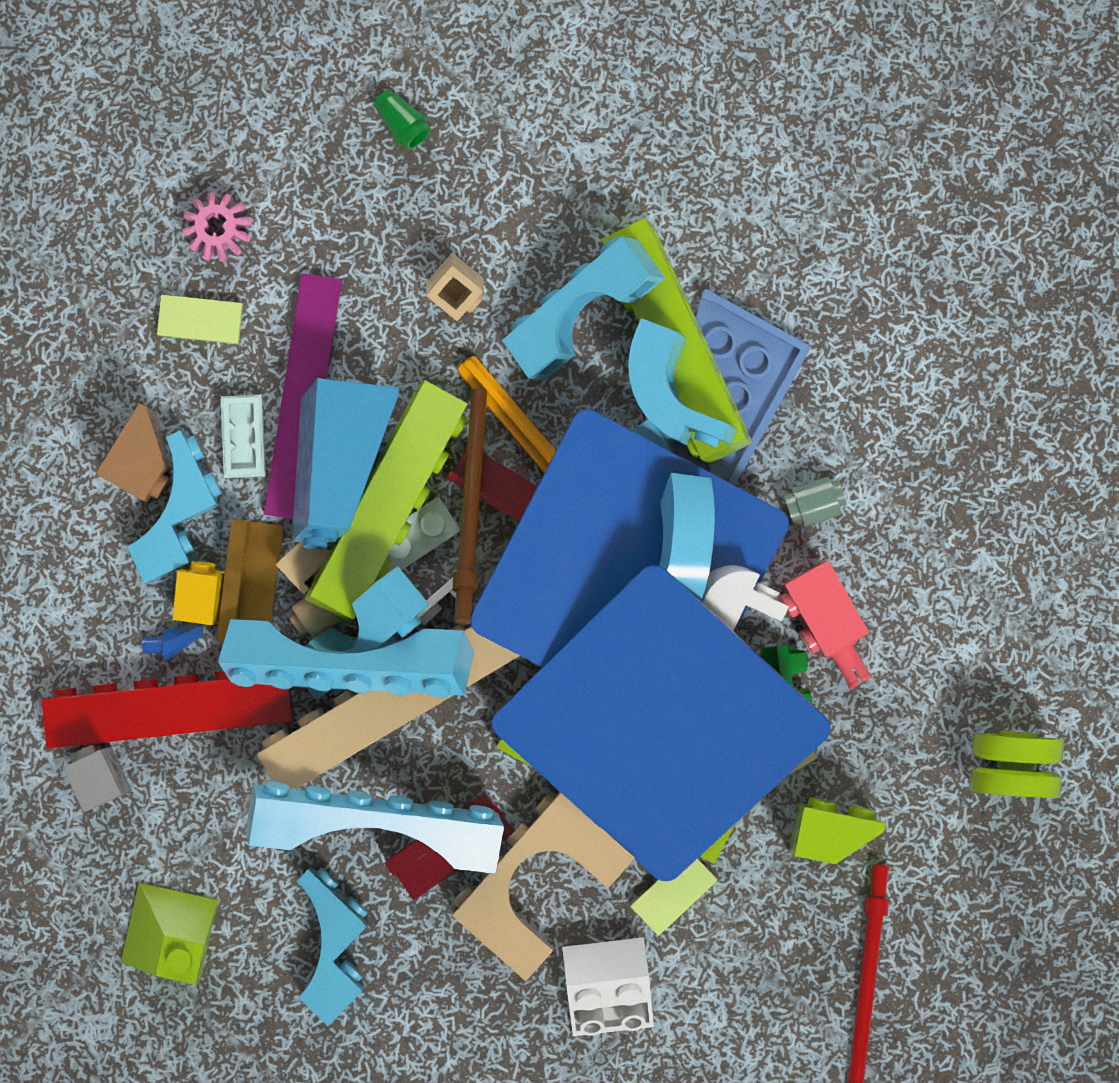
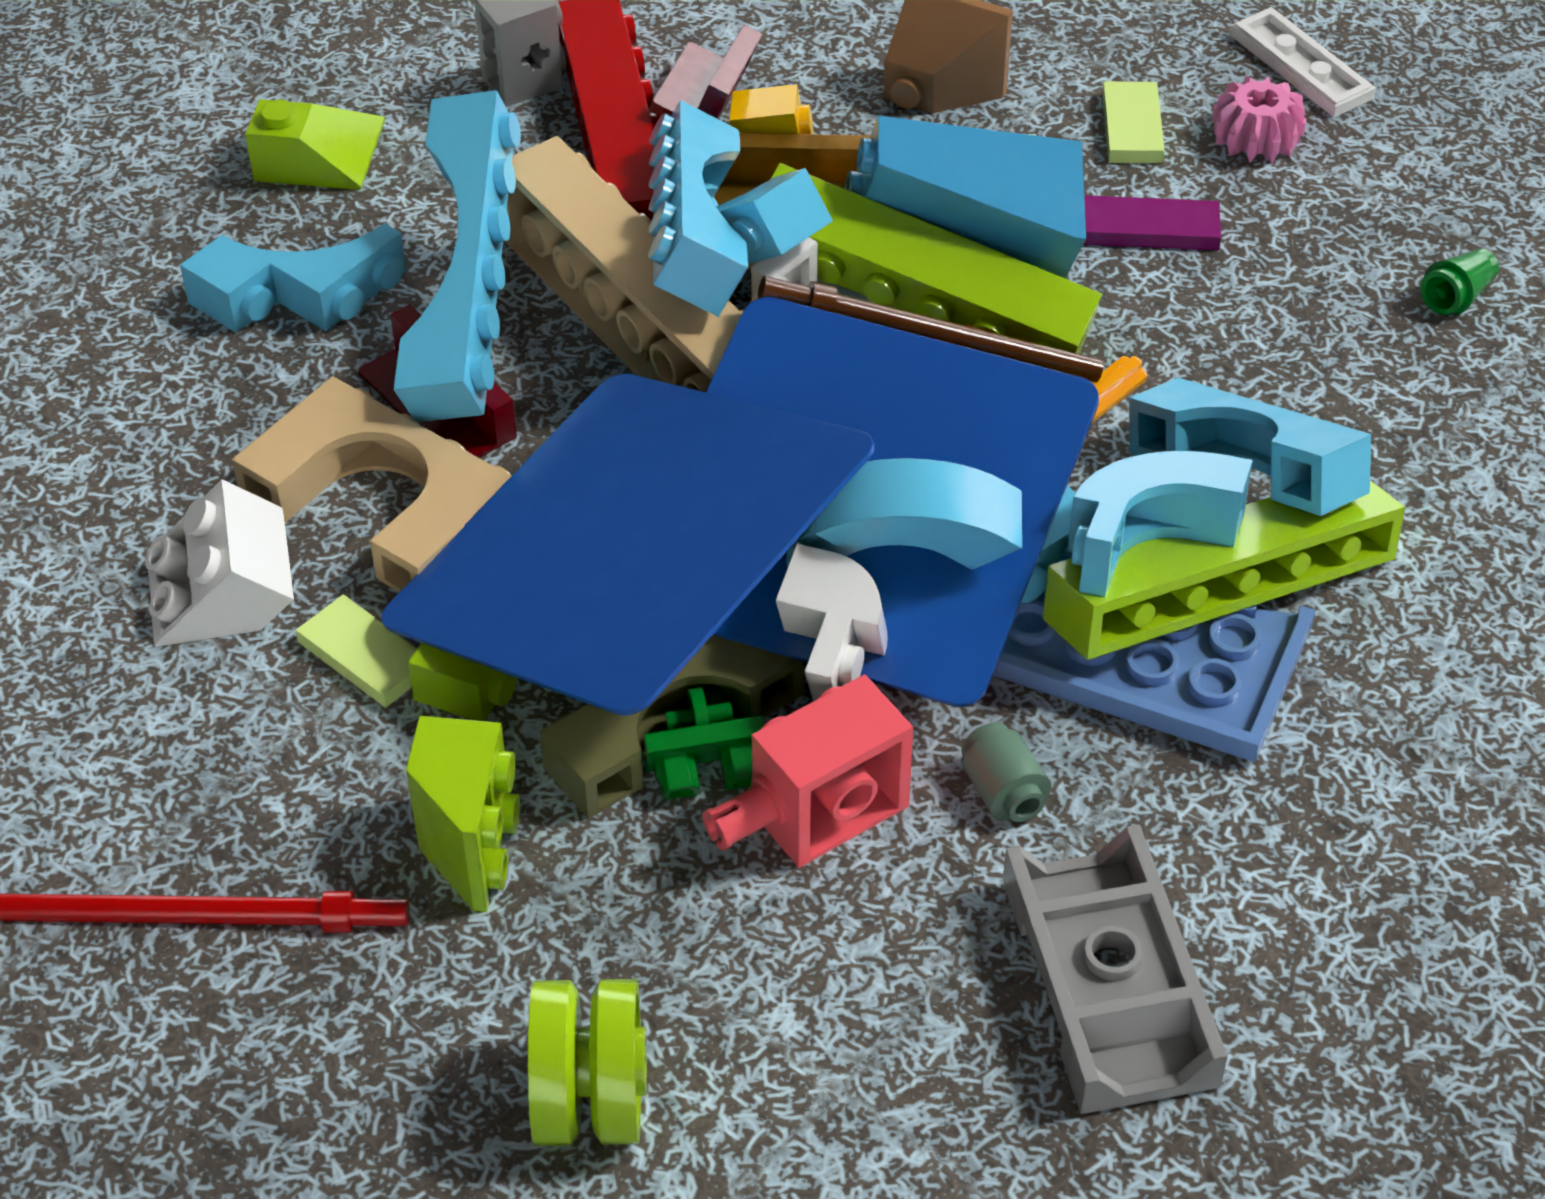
camera: 85 degrees right, 40 degrees down
(138, 177) = (1303, 62): none -> white tile
(150, 638) = (705, 77): none -> panel
(192, 494) = (849, 97): medium azure arch -> none
(455, 287) = (1242, 329): tan brick -> none
(919, 468) = (1127, 1028): none -> light grey piece

